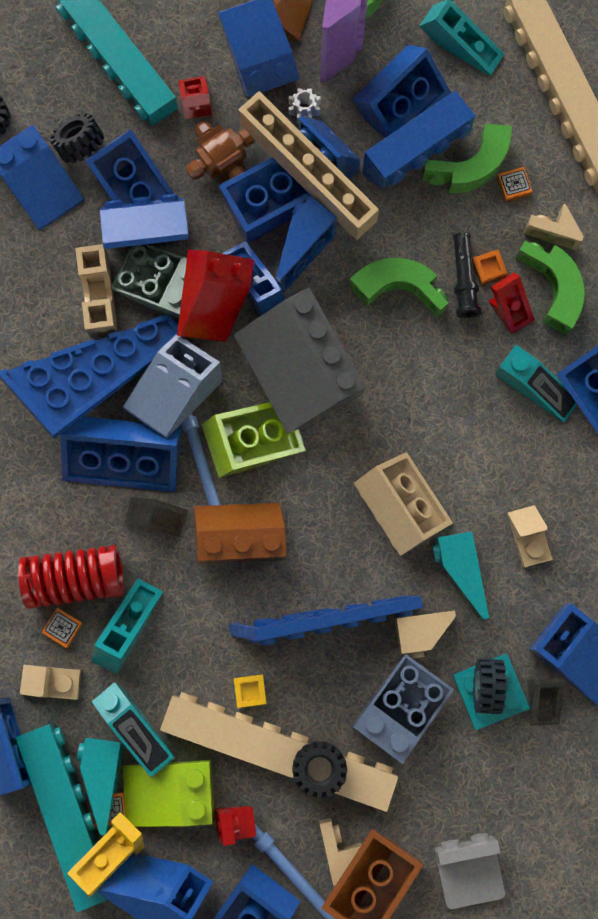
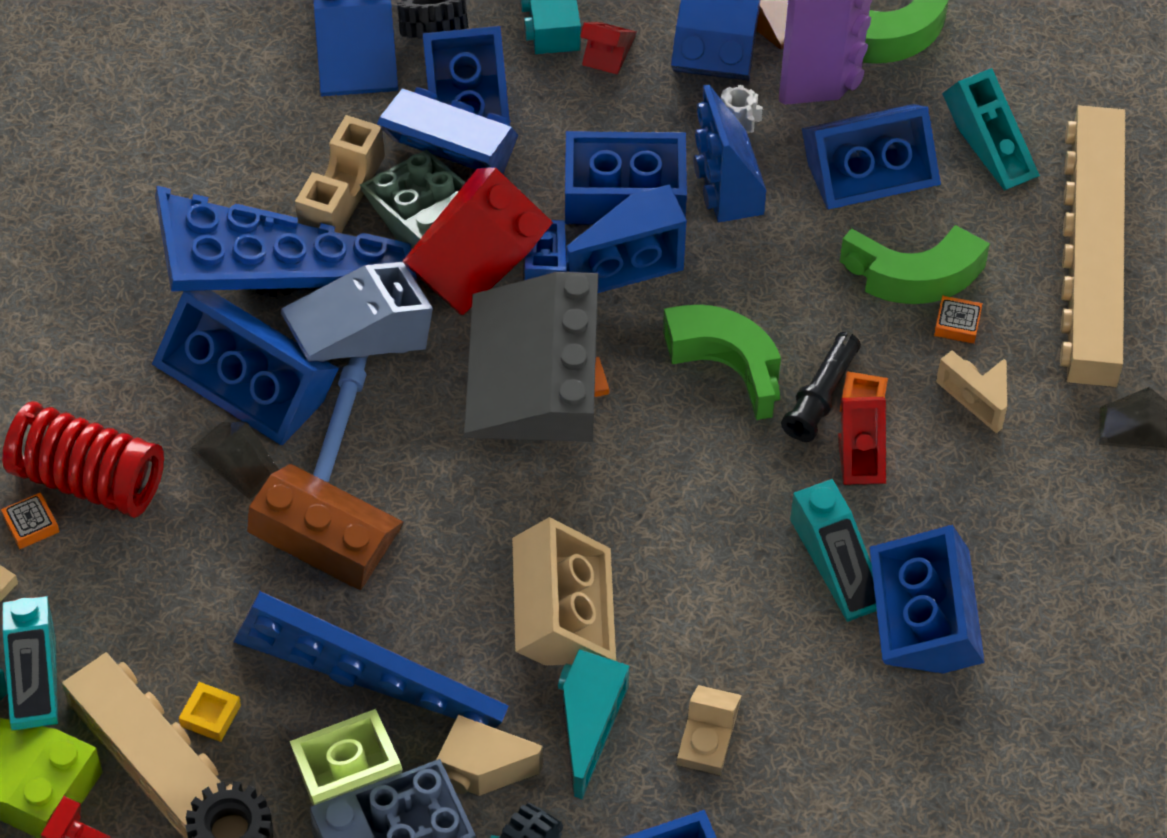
camera: 30 degrees right, 25 degrees down
(125, 626) = (102, 555): teal slope -> none
(219, 152) = (596, 105): dark orange piece -> none
(249, 439) = (415, 427): lime slope -> none
(308, 165) = (687, 151): tan brick -> none
(355, 687) = (345, 757): none -> yellowish green slope
(418, 140) = (851, 196): blue slope -> none
(565, 282) = (941, 476): bright green arch -> none

